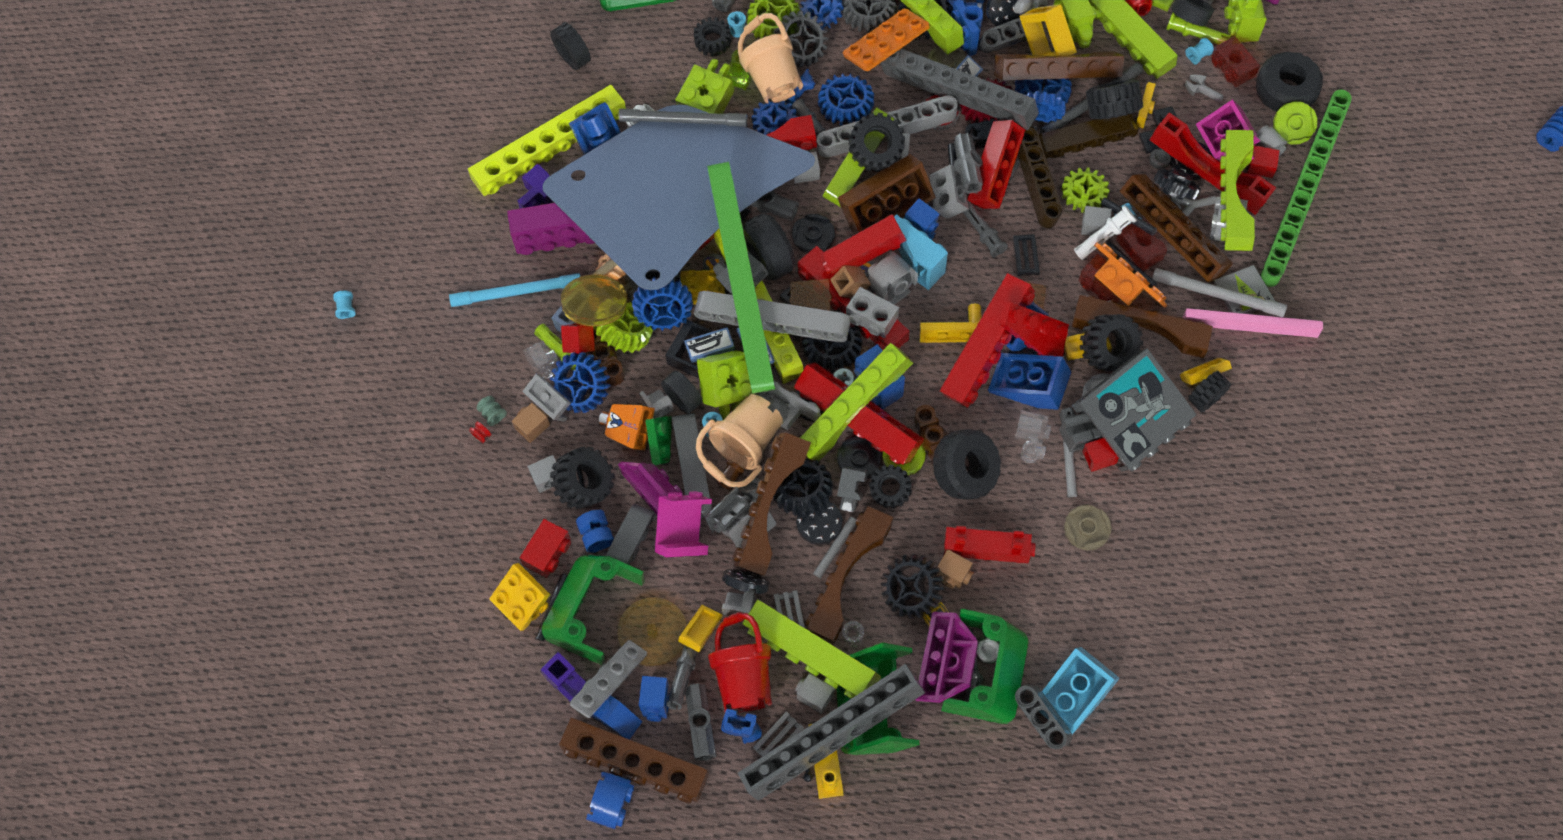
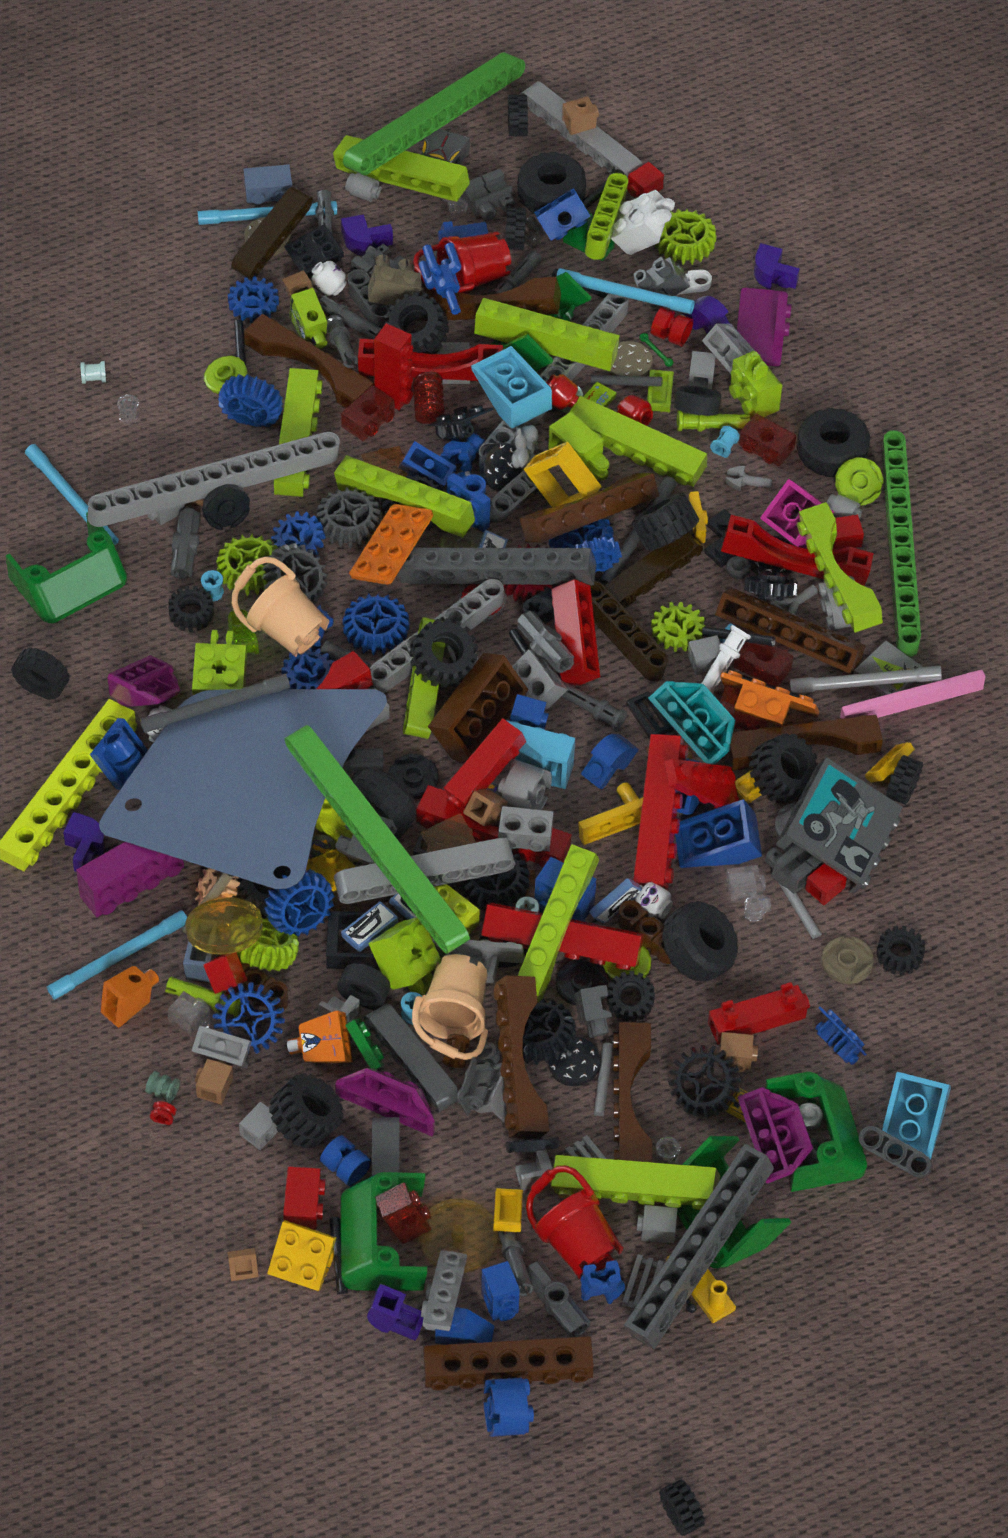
camera: 30 degrees left, 10 degrees down
(473, 583) = (242, 1264): none -> medium nougat tile
(502, 324) = (127, 994): none -> orange torso
(612, 597) = (404, 1212): none -> clear red brick
(642, 80) = (143, 683): none -> magenta wedge
(680, 525) = (435, 1114): dark pink panel -> none
(911, 402) = (610, 905): none -> medium blue tile
(949, 412) = (654, 900): none -> white head
(973, 276) = (608, 755): none -> blue brick
(1044, 584) = (833, 1031): none -> blue hinge
(1058, 272) = (696, 717): none -> teal wedge
(1136, 525) = (906, 938): none -> black tyre

